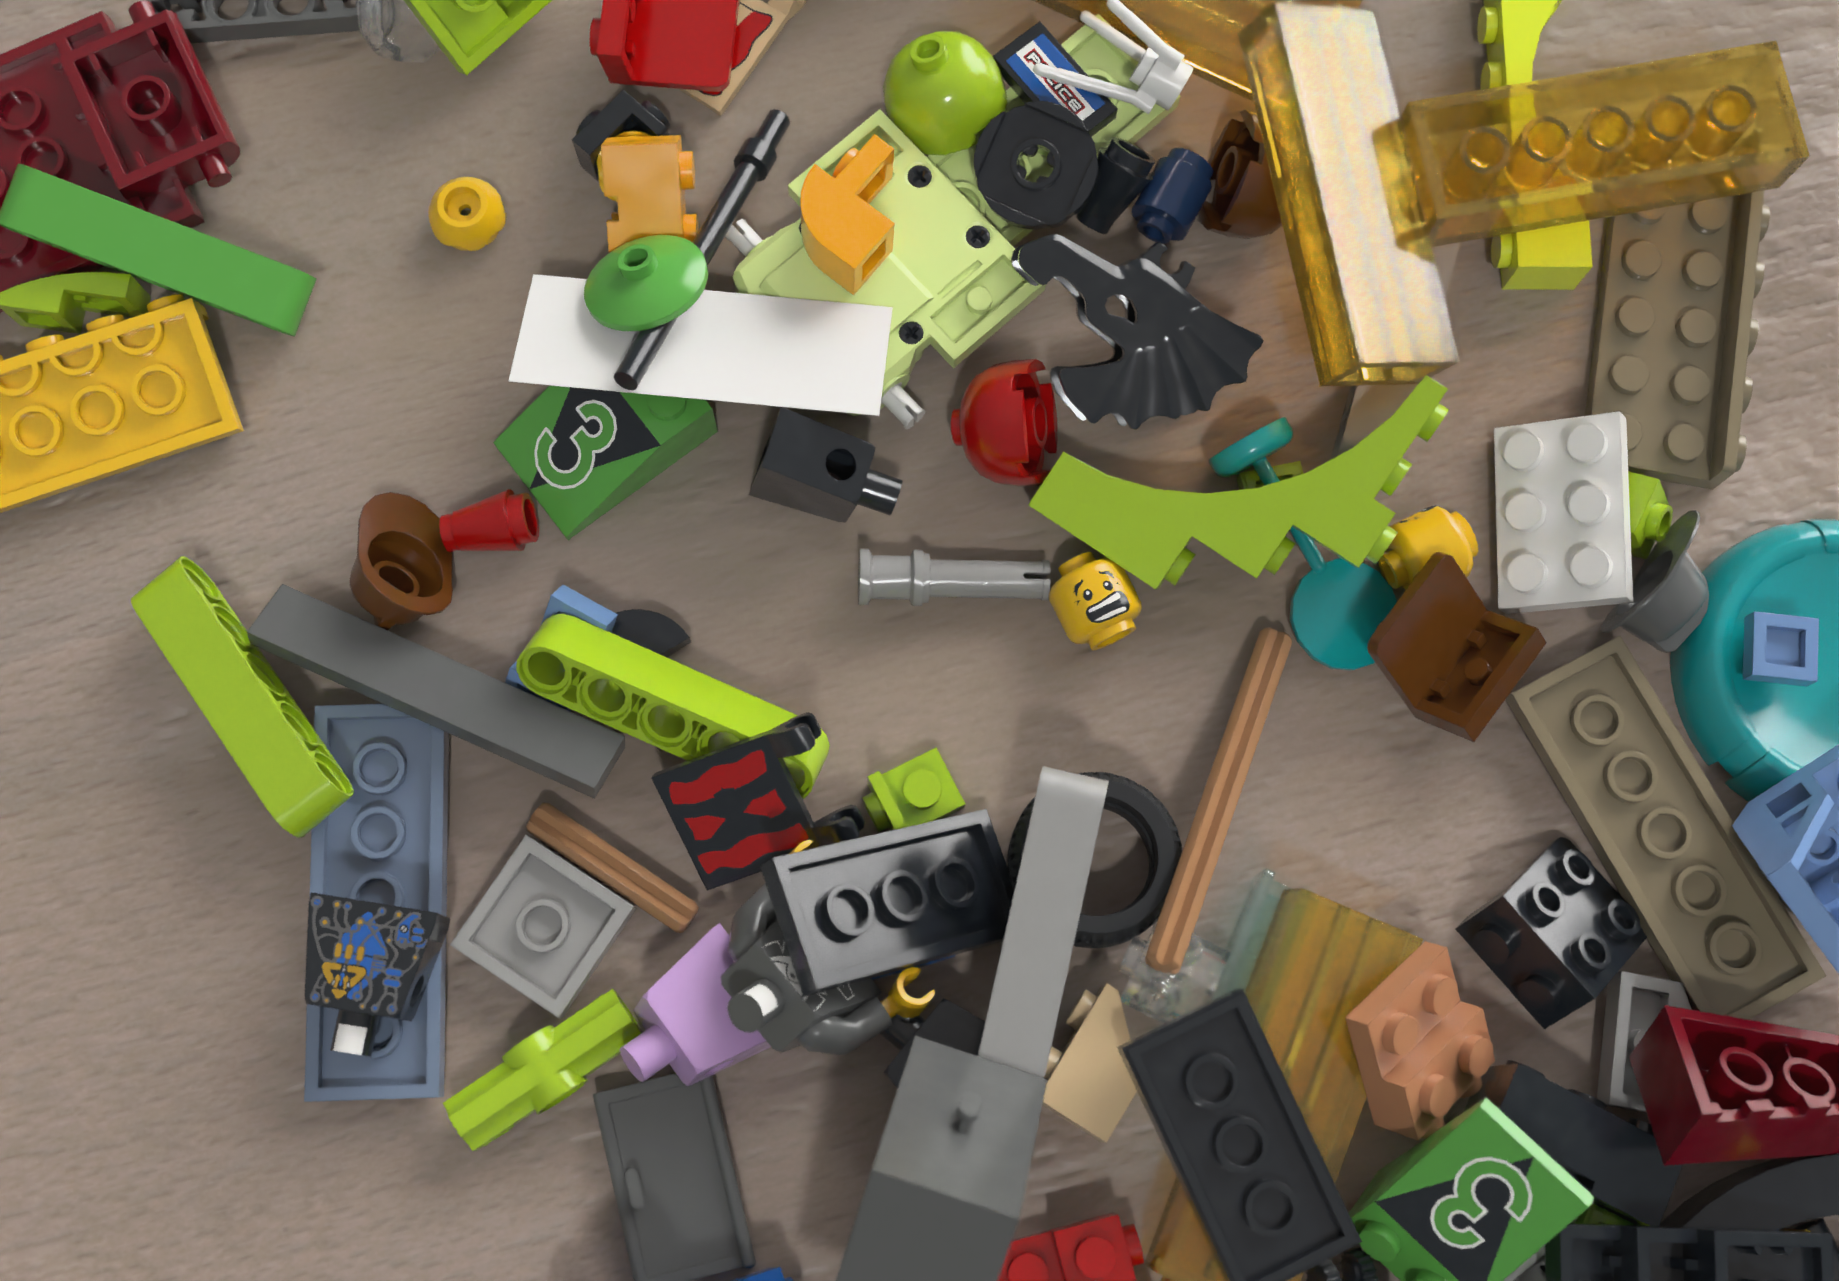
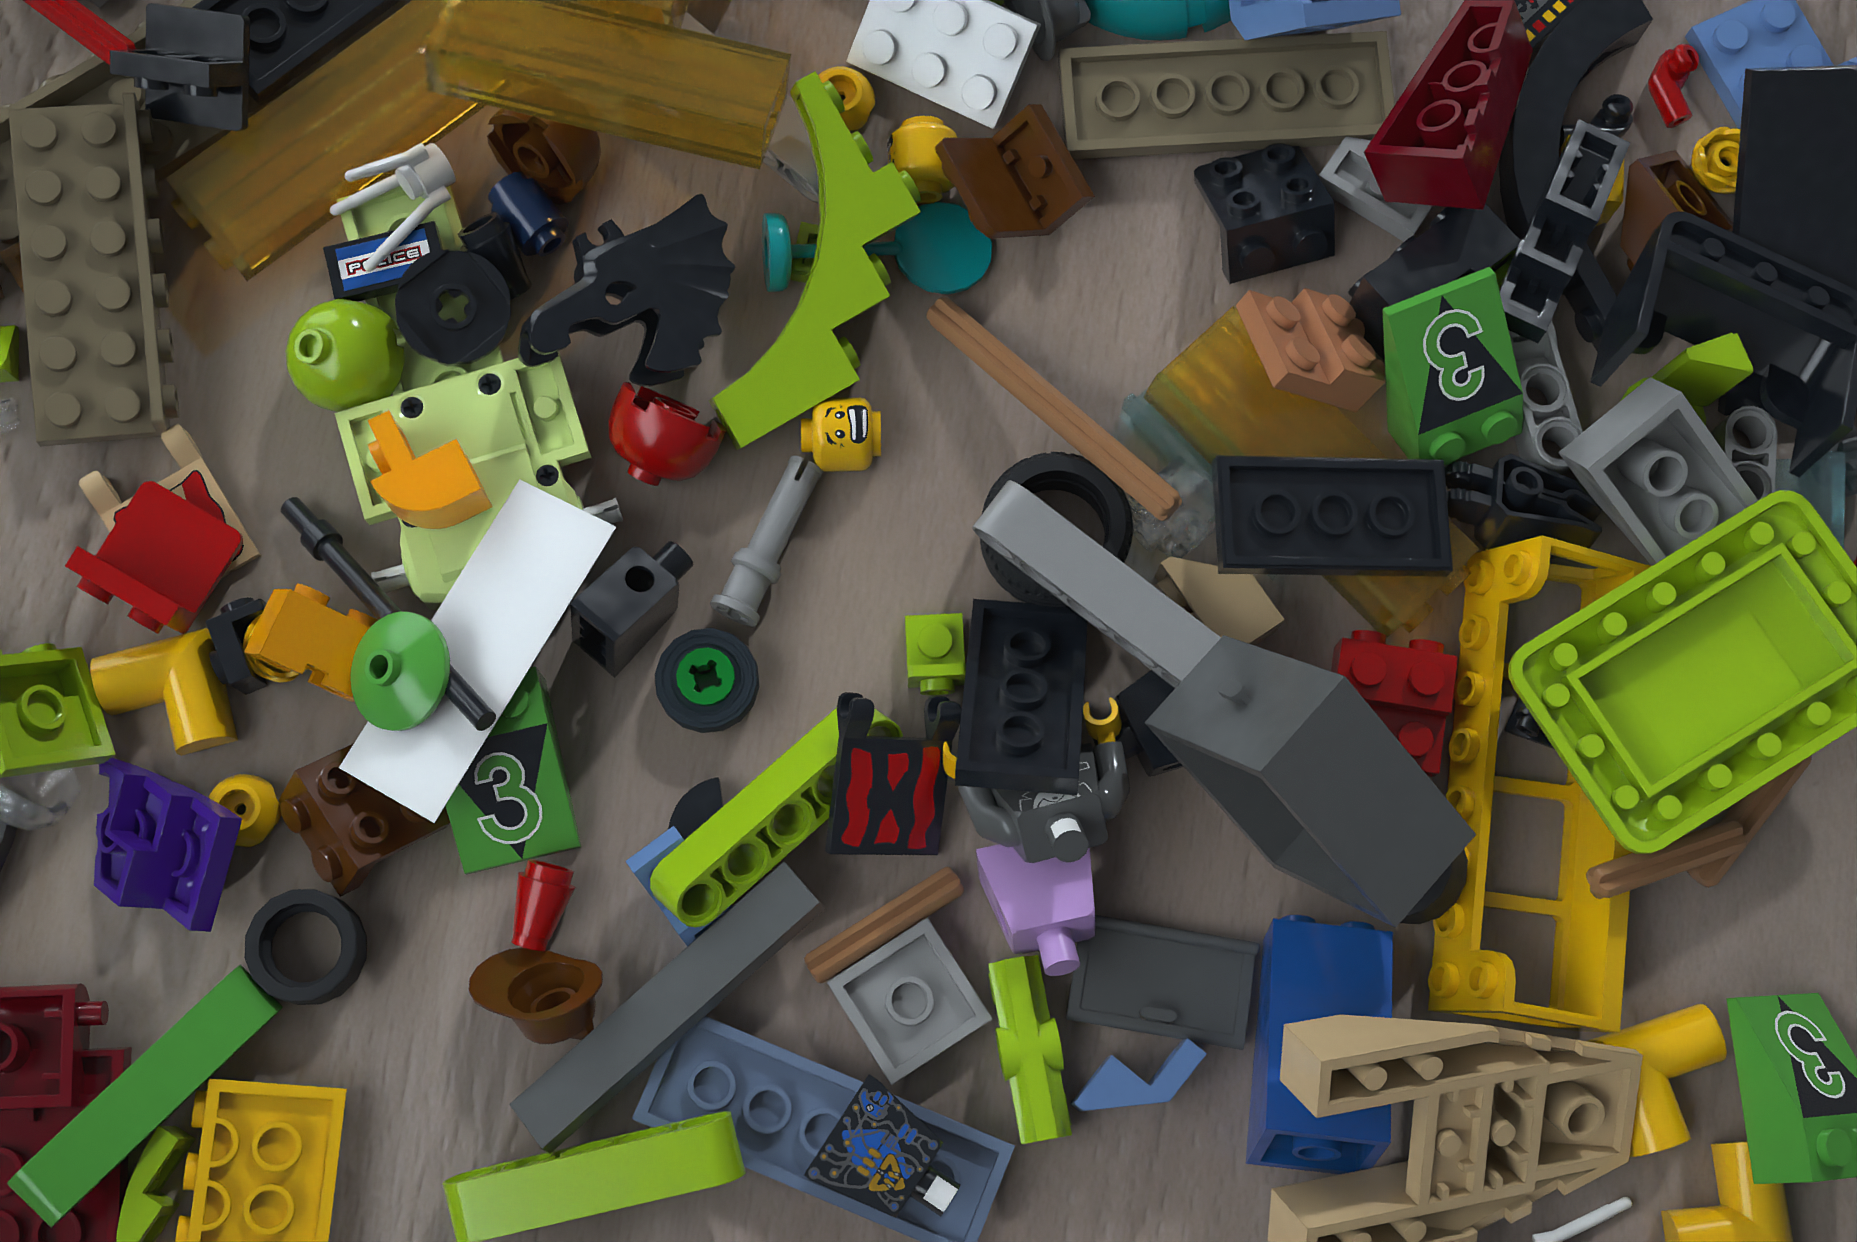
camera: 65 degrees left, 0 degrees up
(339, 289) = (264, 927): none -> black tyre
(399, 157) = (162, 845): none -> dark purple slope
(488, 310) = (348, 821): none -> reddish brown bracket
(541, 1181) = (1117, 1086): none -> medium blue slope
(567, 92) = (172, 673): none -> yellow brick
(781, 606) = (714, 705): none -> black wheel
(1457, 460) = (858, 94): none -> yellow plate

